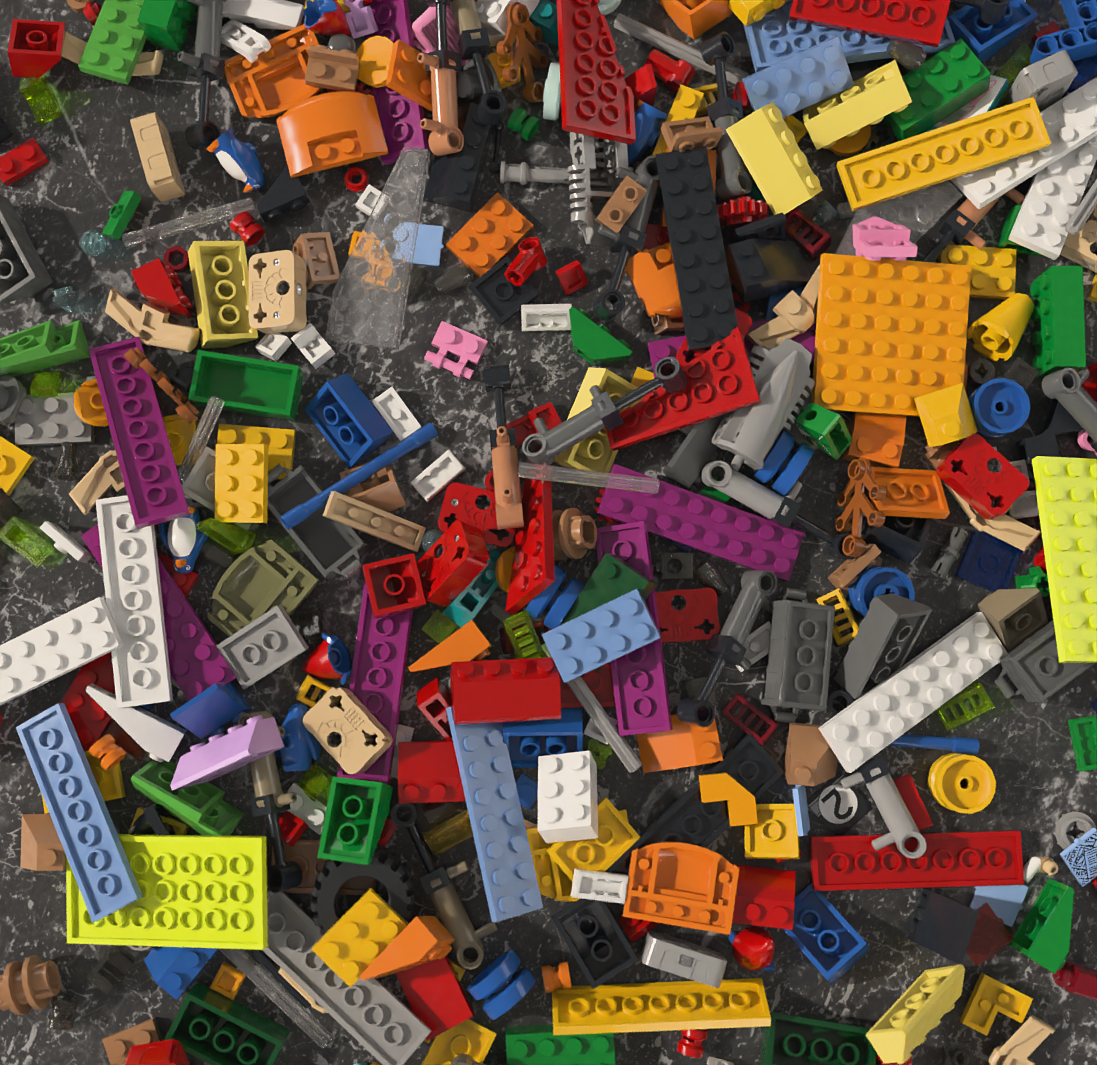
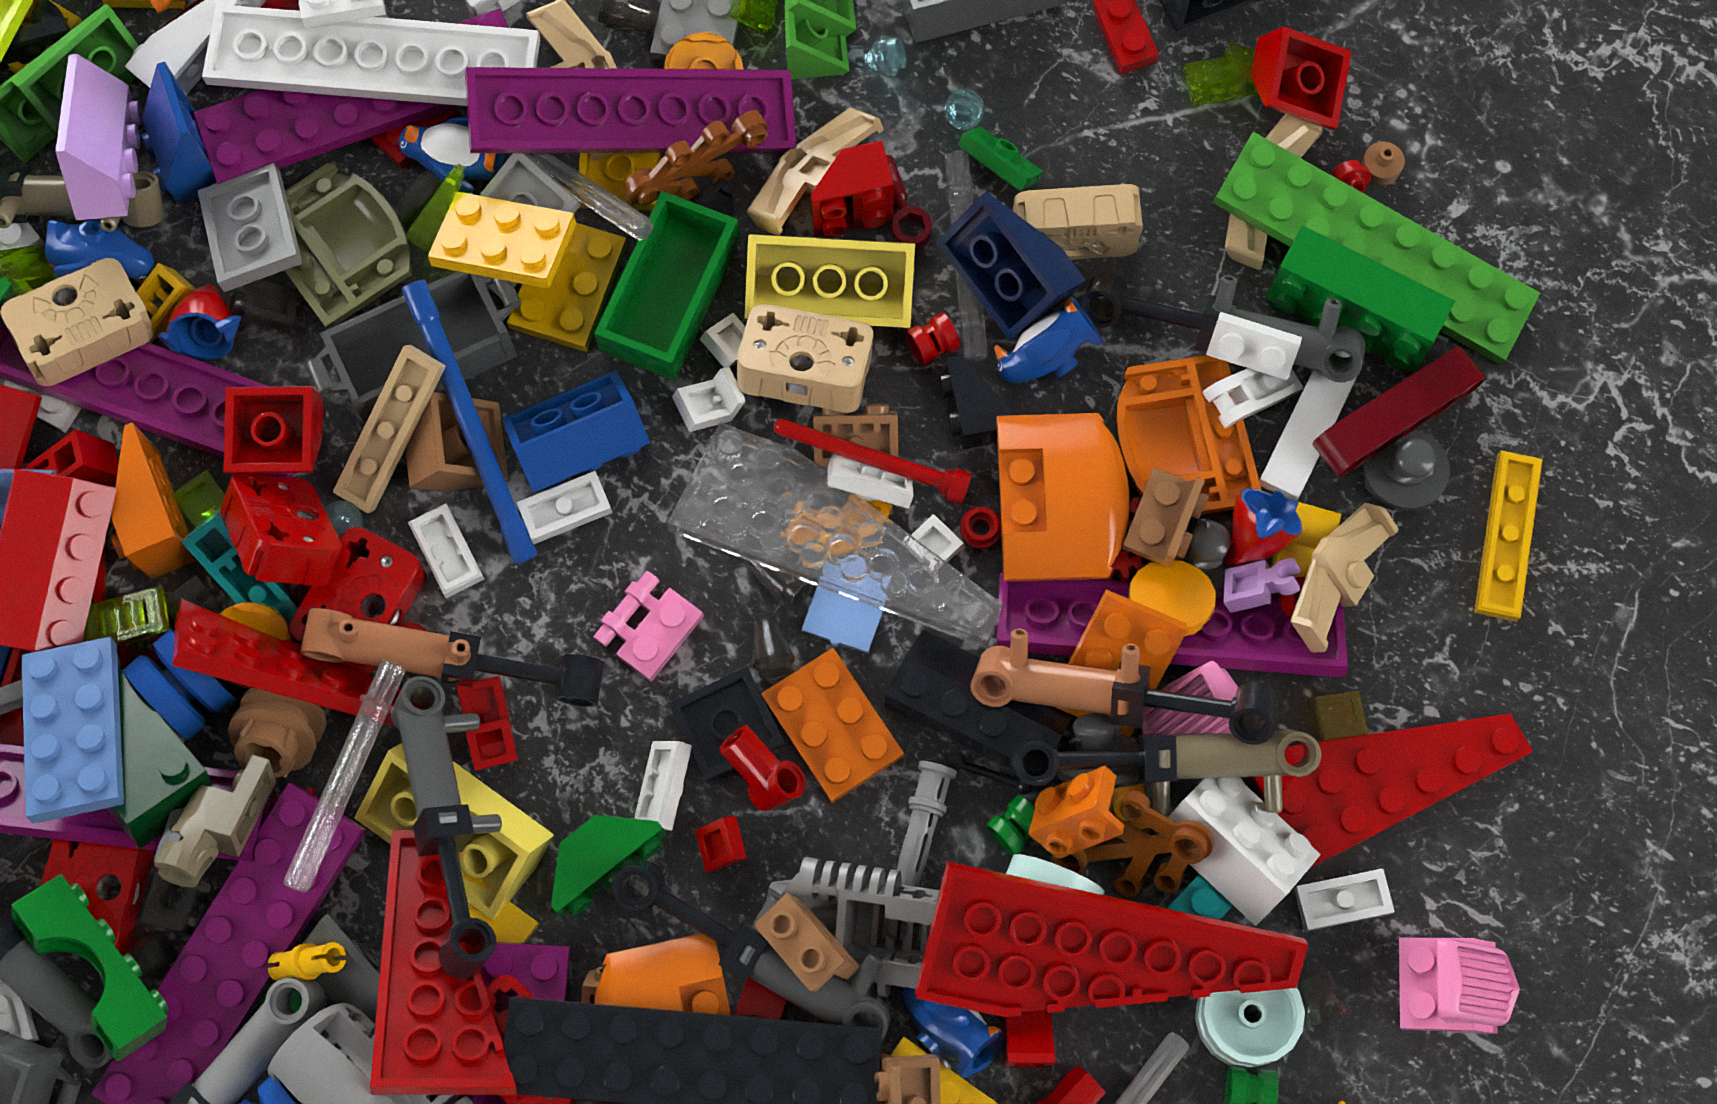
camera: 105 degrees right, 10 degrees down
(196, 185) = (1009, 265): none -> dark blue slope
(217, 39) = (1254, 346): none -> white plate
(334, 199) = (950, 483): none -> red piece
(343, 243) = (869, 482): none -> white plate
(514, 81) = (1076, 814): none -> orange bracket
(634, 544) = (213, 824): none -> dark tan plate
(695, 470) = (307, 961): none -> yellow pin
(744, 564) = (58, 921): none -> green arch

